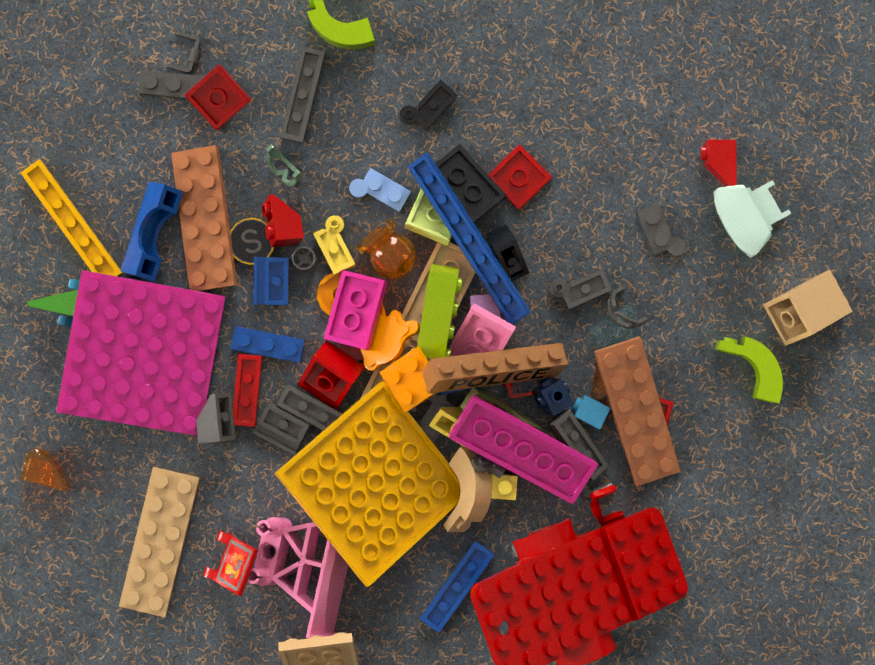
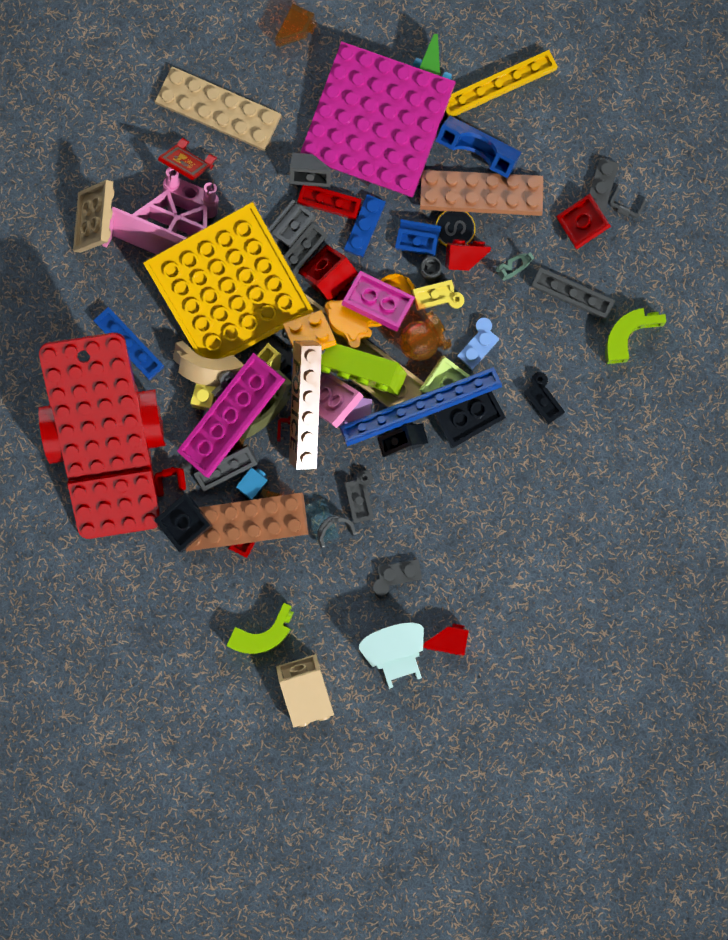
camera: 100 degrees right, 5 degrees down
(520, 177) = (467, 464): red tile -> none
(552, 396) = (266, 456): dark blue brick -> none
(652, 479) = (183, 522): none -> black plate

